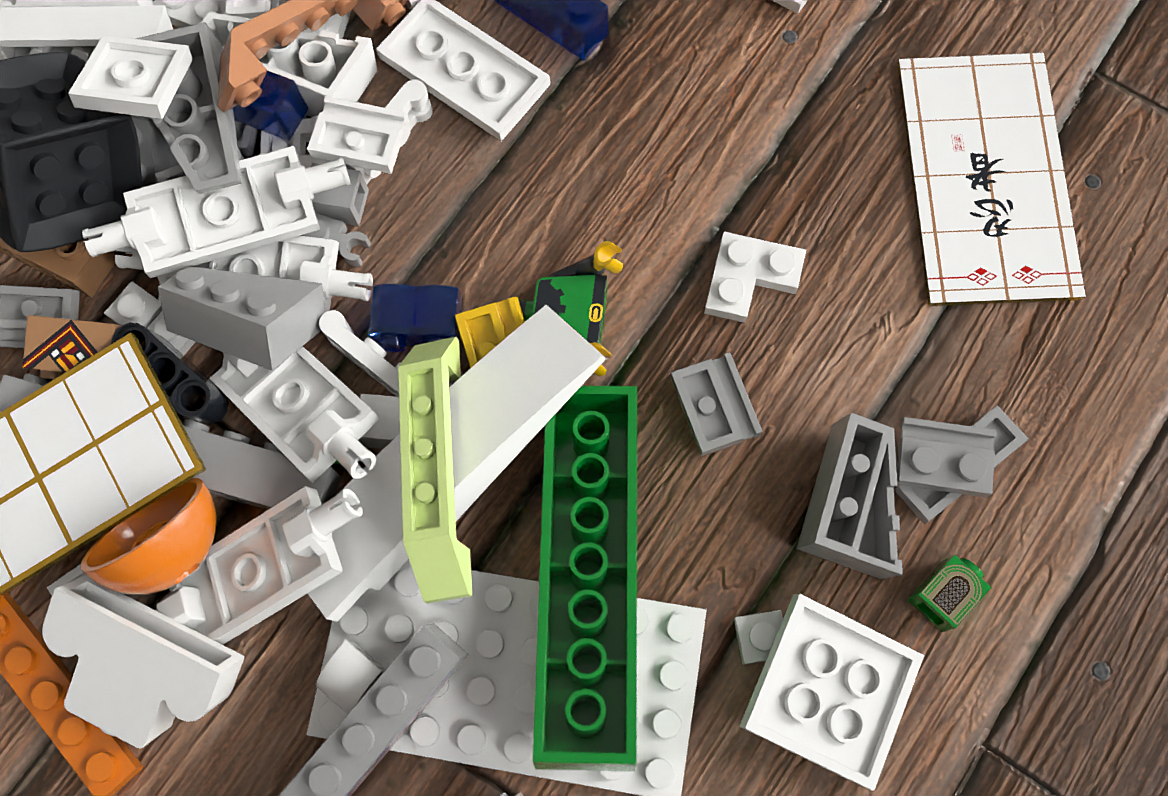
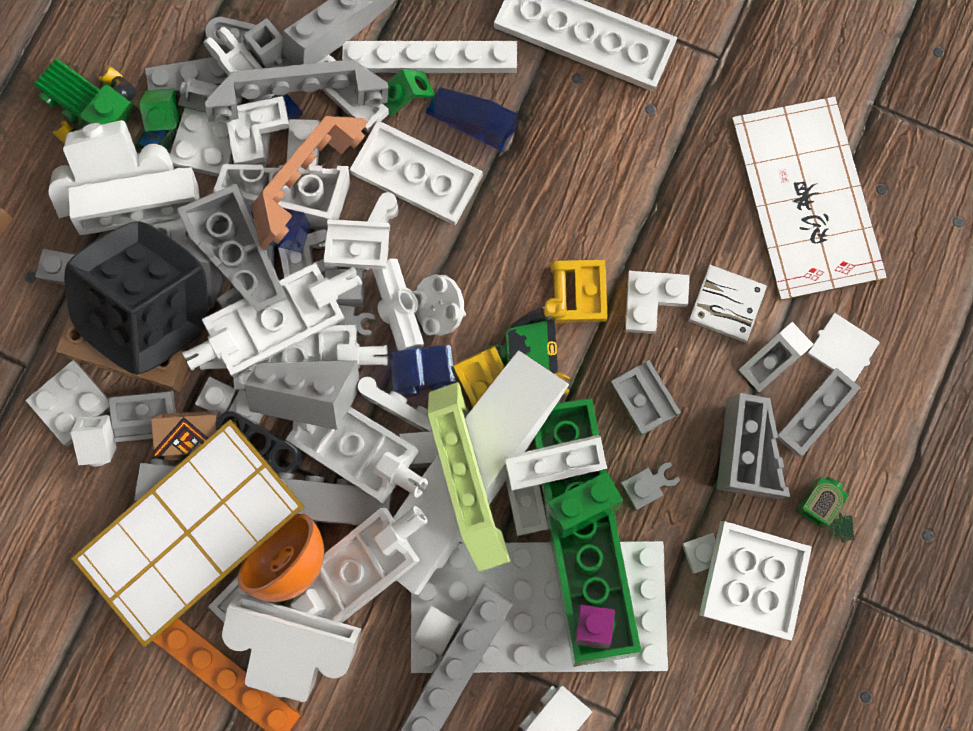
camera: 15 degrees left, 5 degrees up
(131, 76) = (198, 238): white plate -> none
(399, 226) = (398, 306): none -> white piece
(454, 234) = (445, 315): none -> white plate
(519, 518) = (527, 509): none -> white plate
(563, 463) = (555, 462): none -> white plate
(568, 712) = (594, 627): none -> magenta brick
(592, 528) = (584, 504): none -> green brick
(663, 251) = (589, 290): none -> yellow plate
(694, 529) = (645, 487): none -> light grey plate
(854, 297) = (727, 303): none -> white tile
(911, 377) = (776, 357): none -> white slope
(946, 457) = (807, 410): light grey plate -> none
(976, 636) = (843, 528): none -> clear green plate
(1011, 380) = (843, 347): none -> white piece

